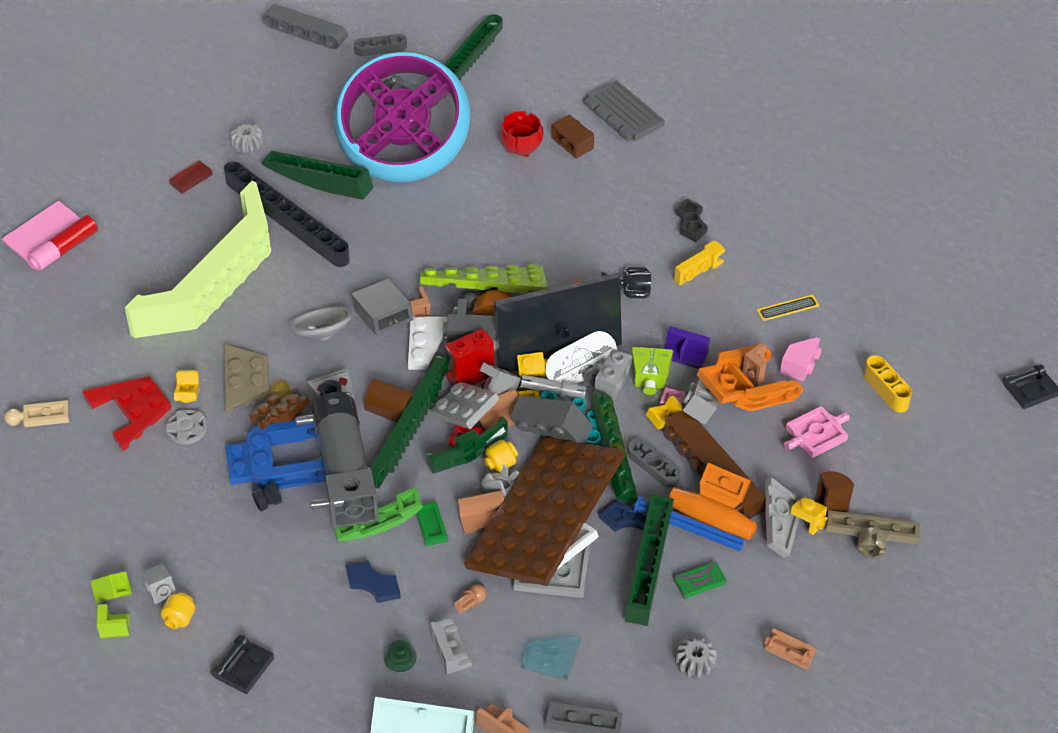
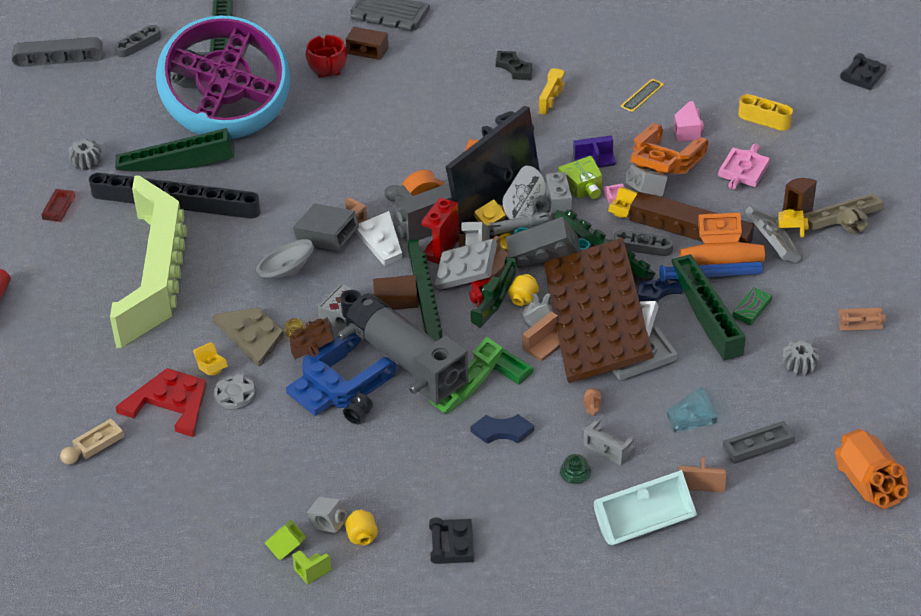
camera: 30 degrees left, 5 degrees down
(505, 279) = (395, 168): lime wing -> none
(755, 366) = (666, 136): nougat panel -> none

